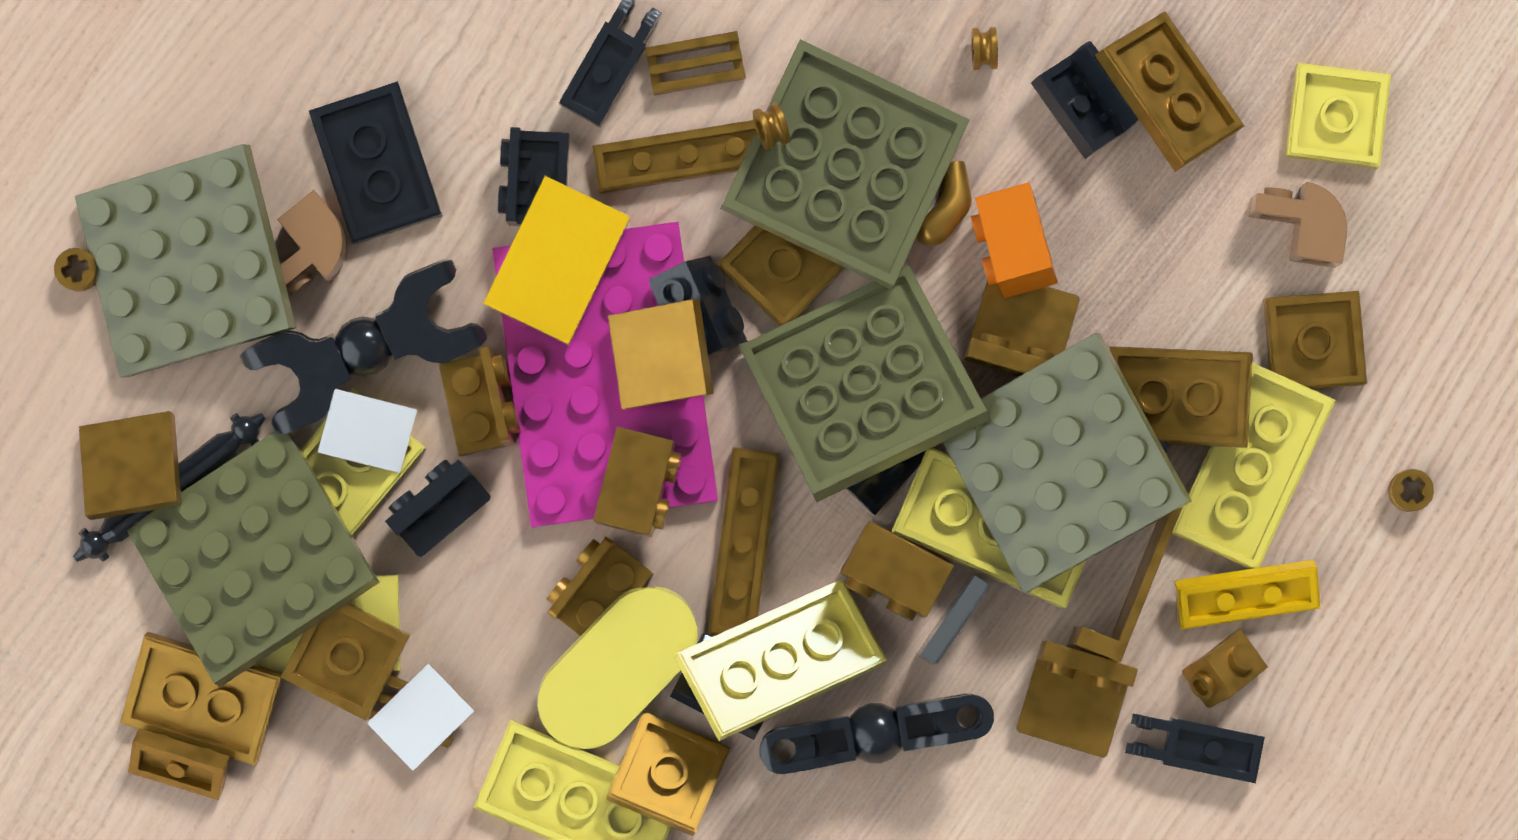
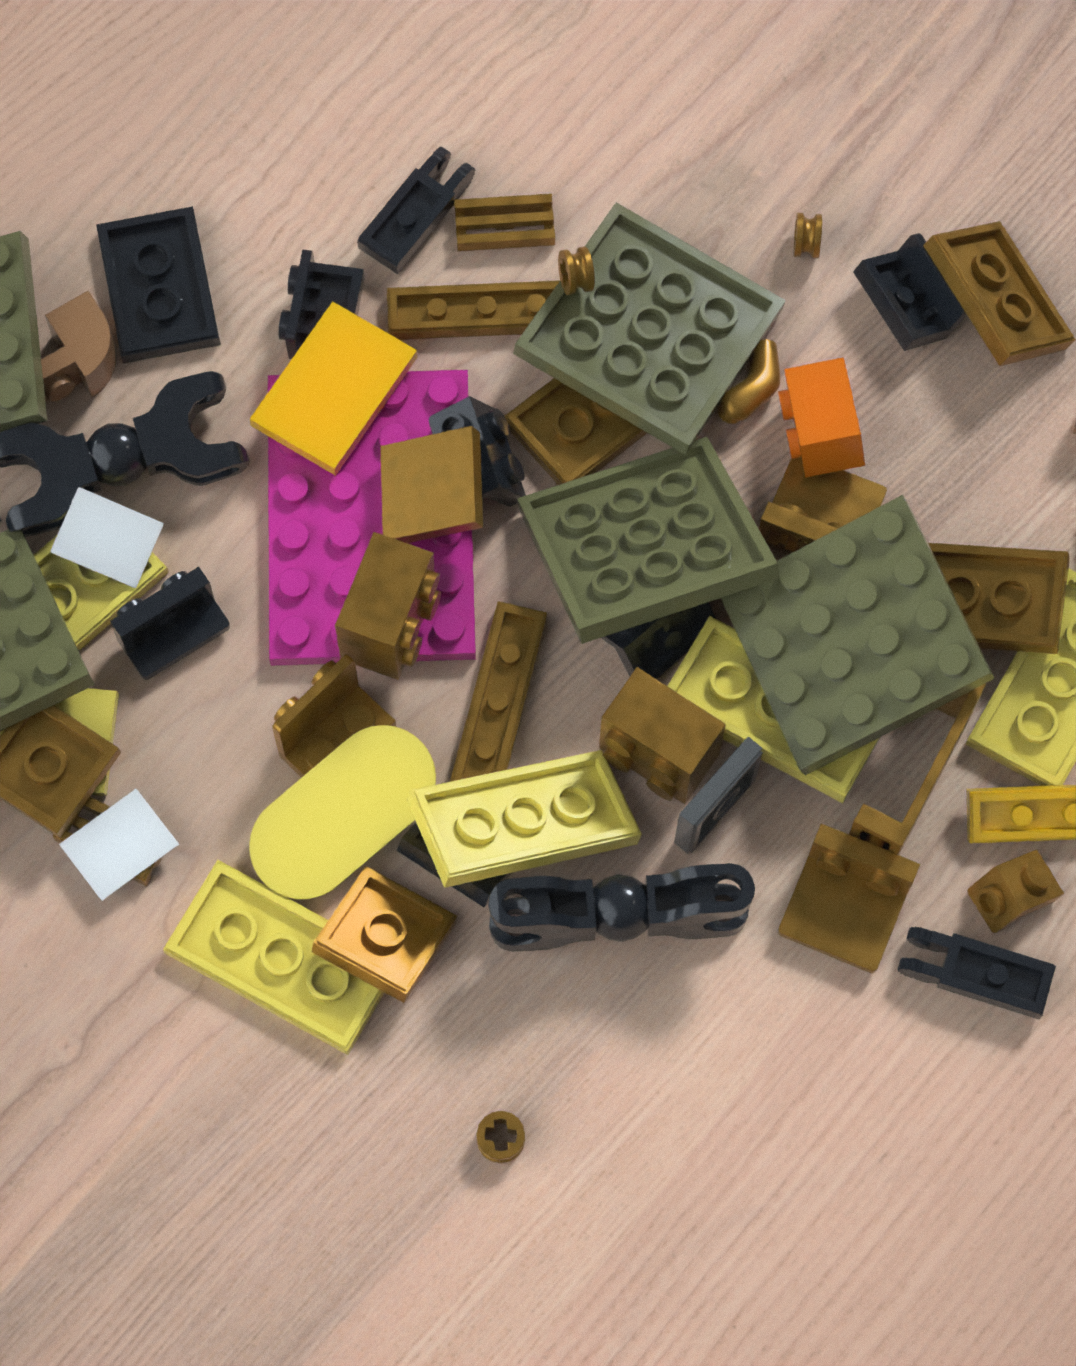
camera: 10 degrees right, 15 degrees down
(477, 402) = (233, 525): pearl gold bracket -> none

